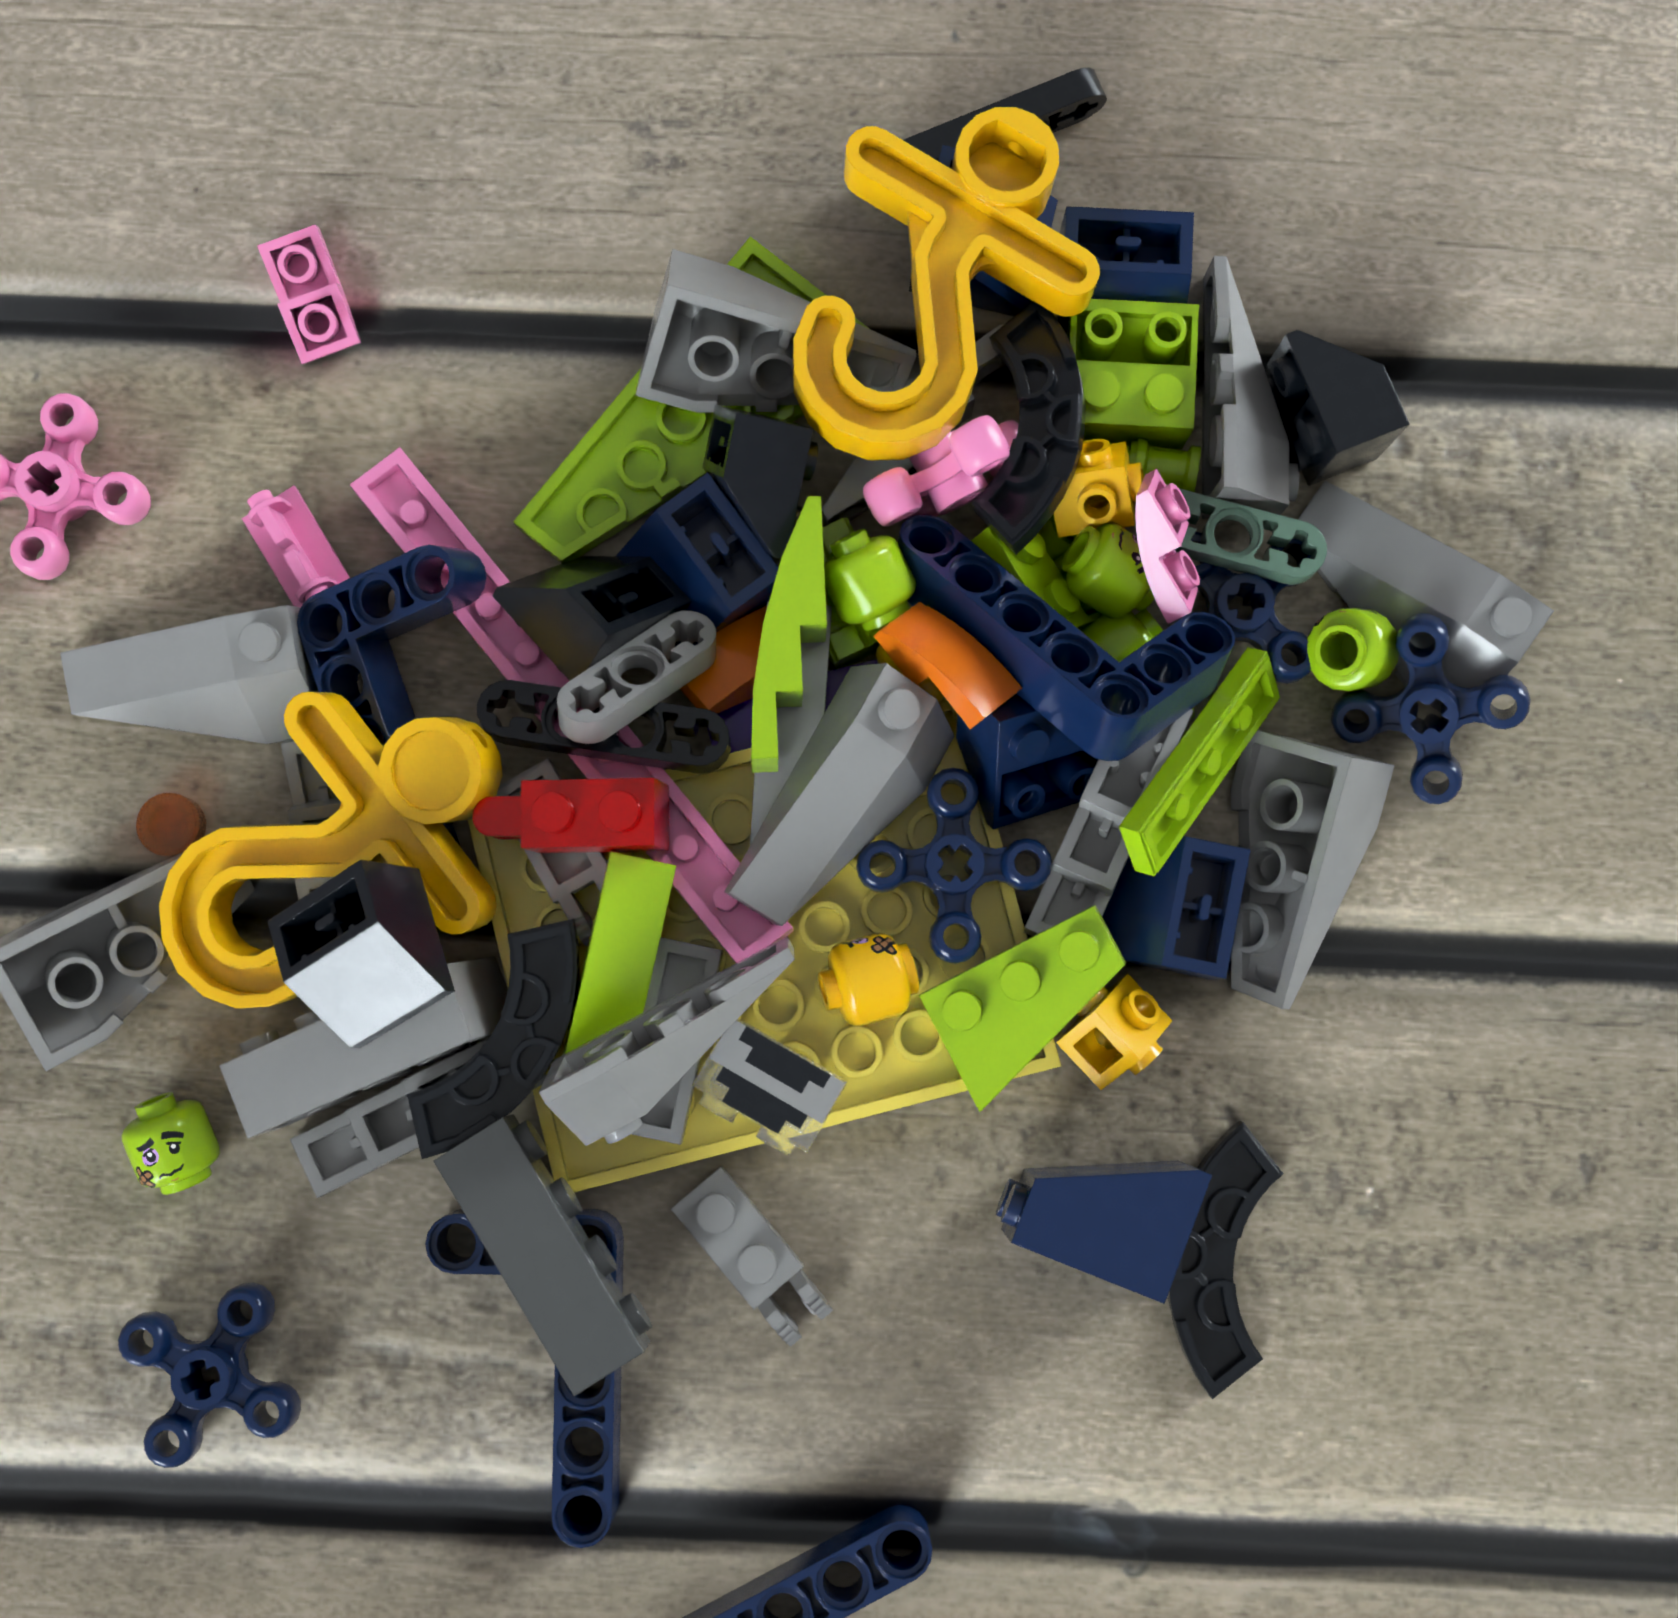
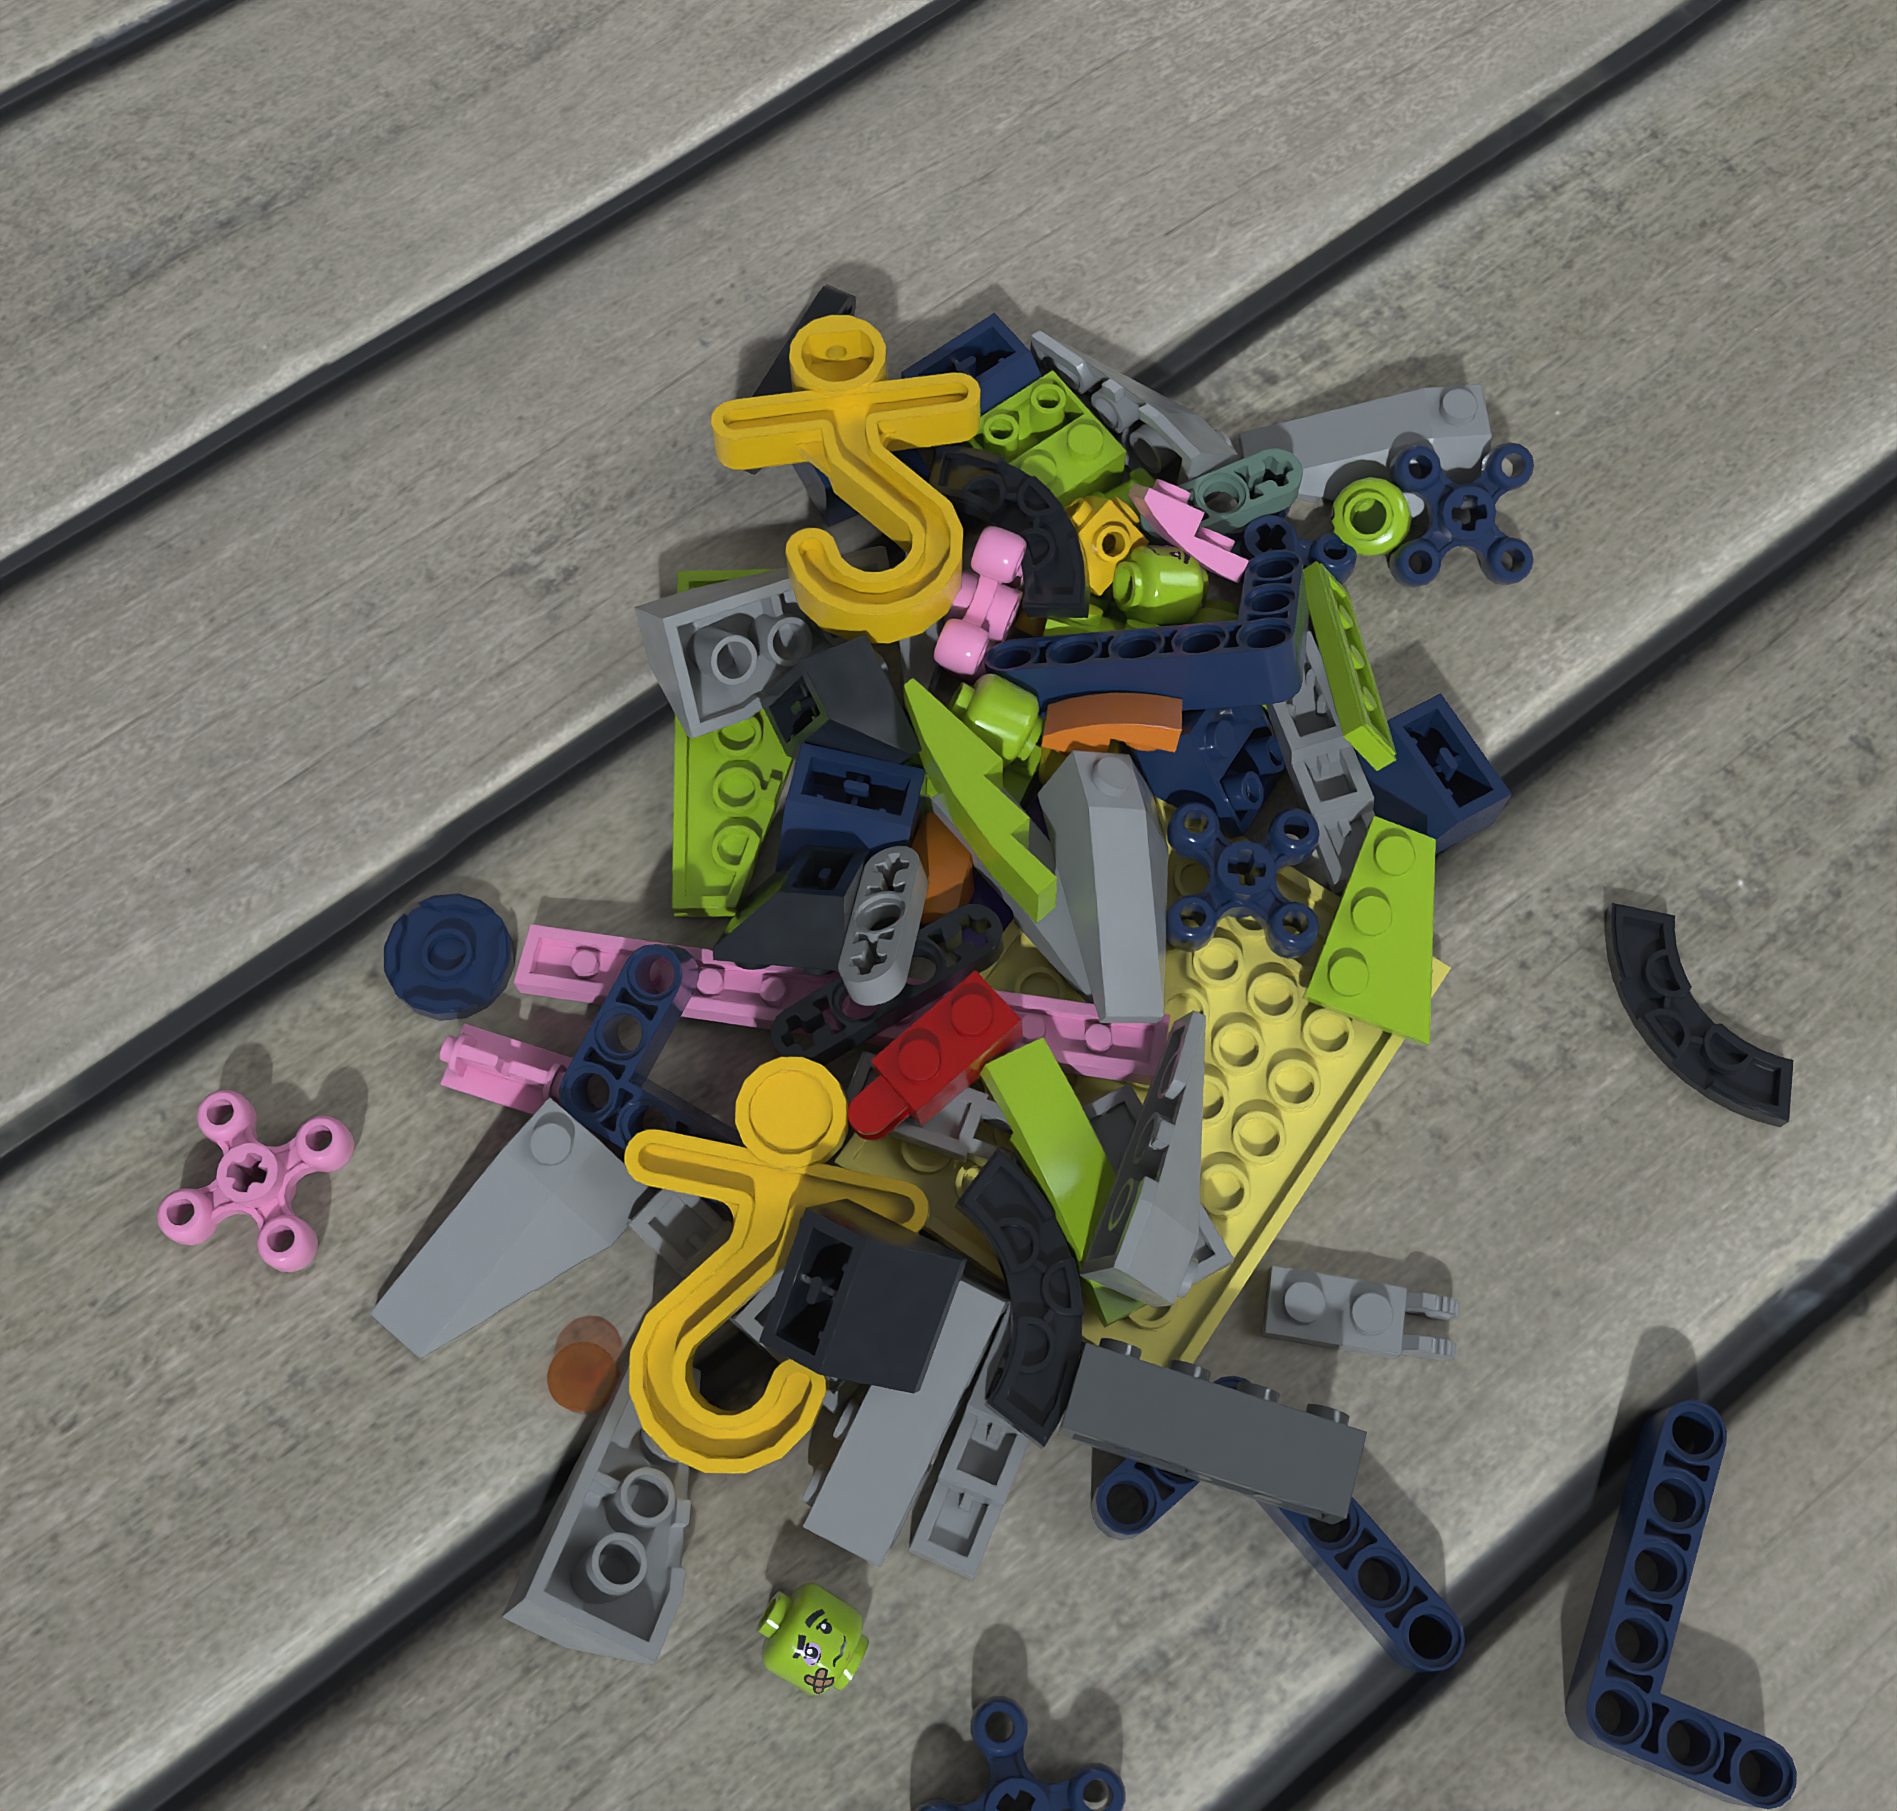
camera: 45 degrees left, 15 degrees down
(309, 294) = (354, 873): bright pink slope -> none
(327, 421) = (449, 957): none -> dark blue tile
(769, 1086) = (1266, 1155): brick -> none
(869, 979) = (1258, 1013): yellow head -> none
(1108, 1219) = (1601, 1044): dark blue slope -> none
(1115, 1032) = (1470, 907): yellow brick -> none
(1307, 826) = (1457, 645): light grey wedge -> none
(1332, 405) = (1207, 363): black slope -> none

